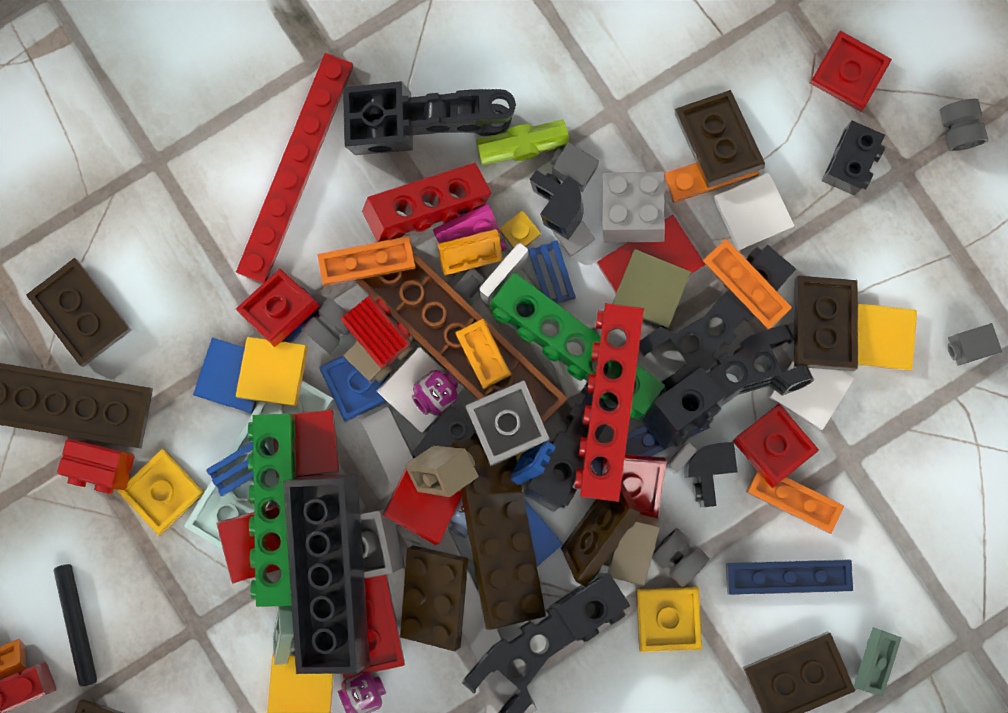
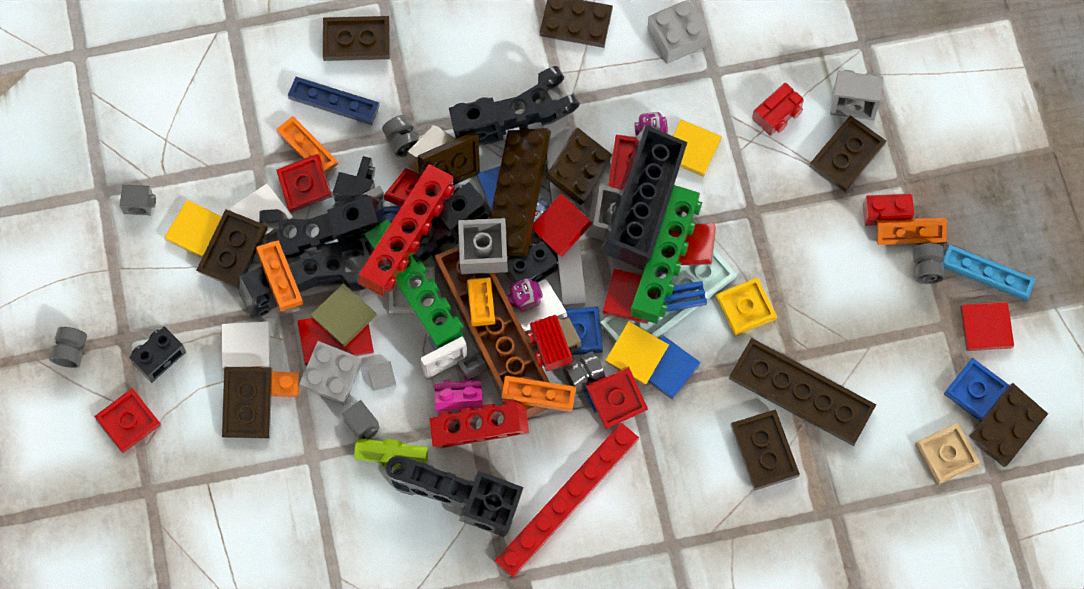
camera: 160 degrees left, 15 degrees down
(75, 625) = (835, 240): black axle -> none
(96, 465) = (785, 335): red brick -> none
(283, 635) = (690, 175): sand green plate -> none
(442, 470) = (540, 231): dark tan brick -> none
(470, 252) = (462, 379): light orange plate -> none
(520, 230) = (420, 393): yellow plate -> none
(533, 252) = (410, 336): blue tile -> none
(535, 459) = (469, 212): blue tile -> none
(565, 203) = (378, 391): black brick -> none
(668, 619) = (426, 103): yellow tile -> none
(877, 662) = (299, 30): sand green plate -> none

